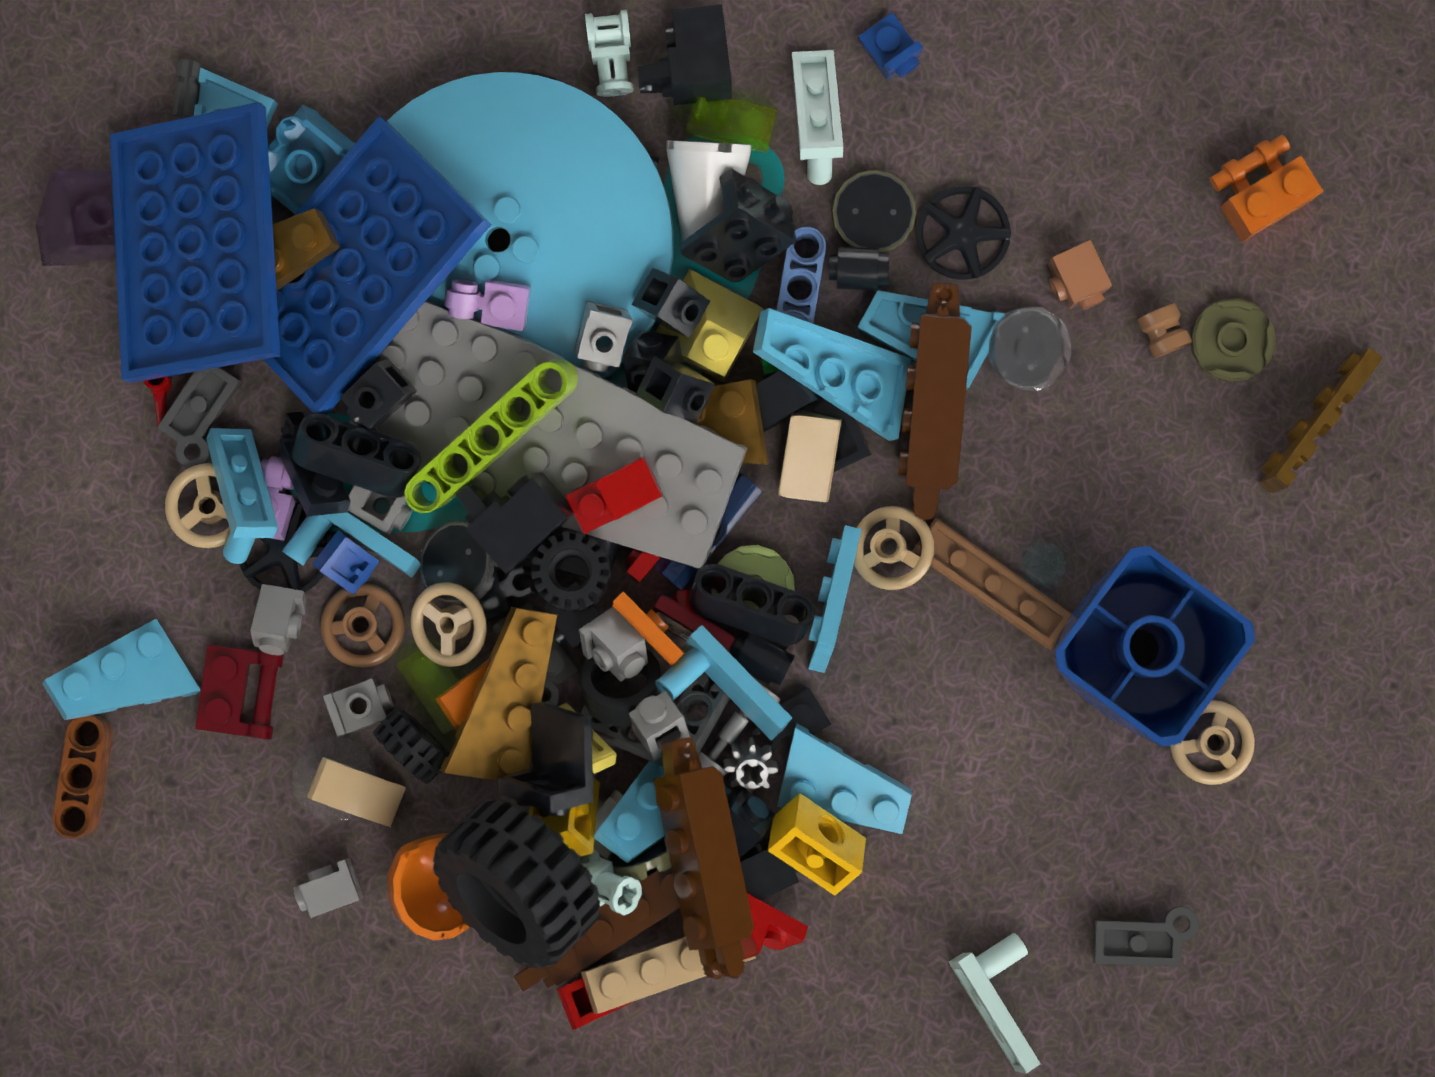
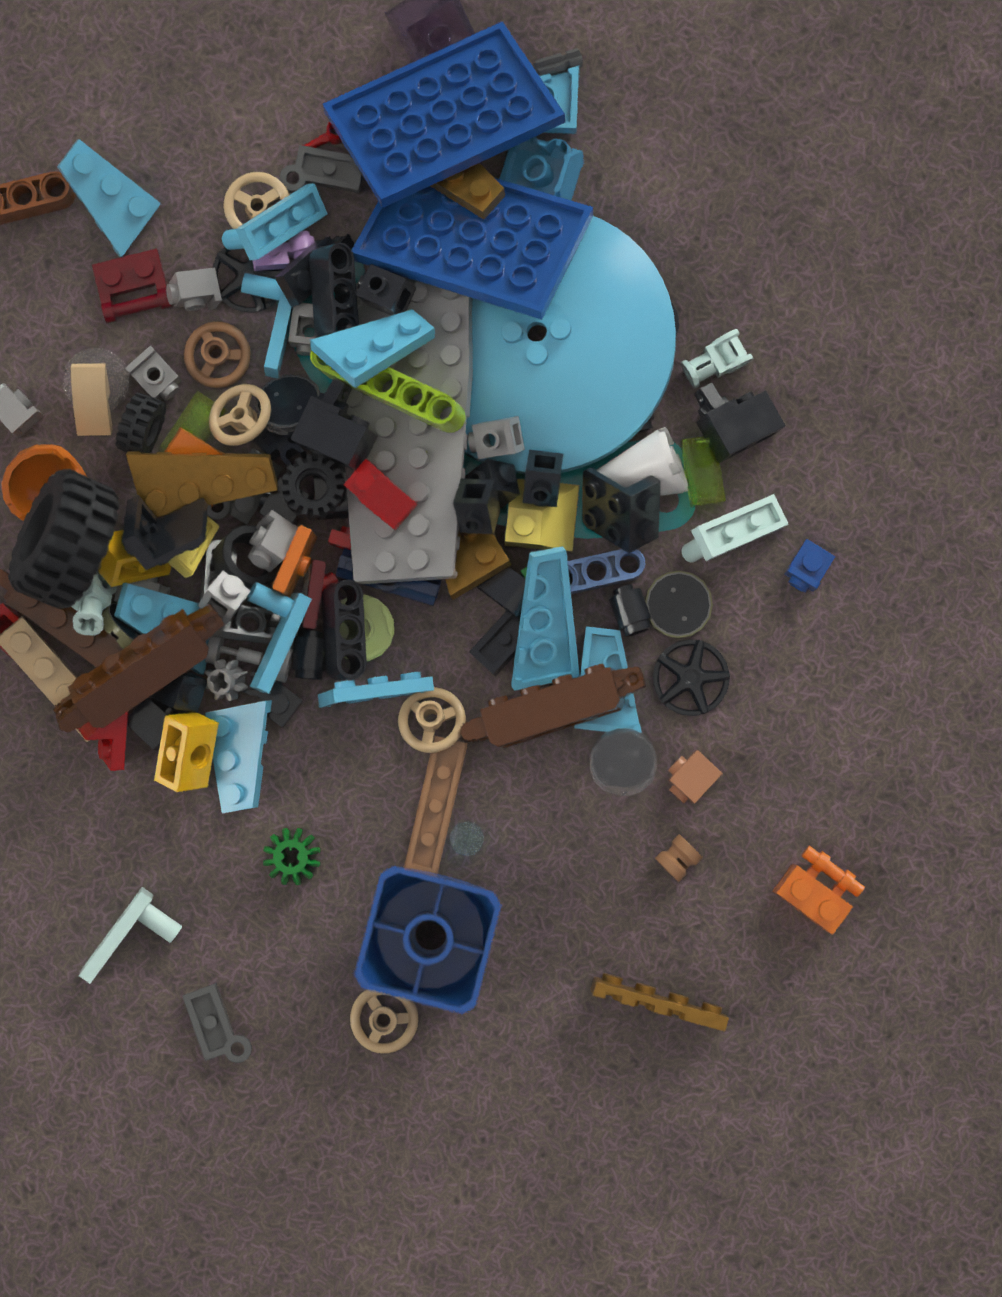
camera: 80 degrees right, 0 degrees up
(346, 562) = (254, 321): blue bracket -> none
(439, 434) = (373, 346): none -> medium azure wing
(501, 303) = (490, 353): lavender plate -> none
(809, 456) = (473, 629): tan slope -> none
(980, 785) = (303, 857): none -> green gear
(1219, 344) = (685, 918): olive tile -> none

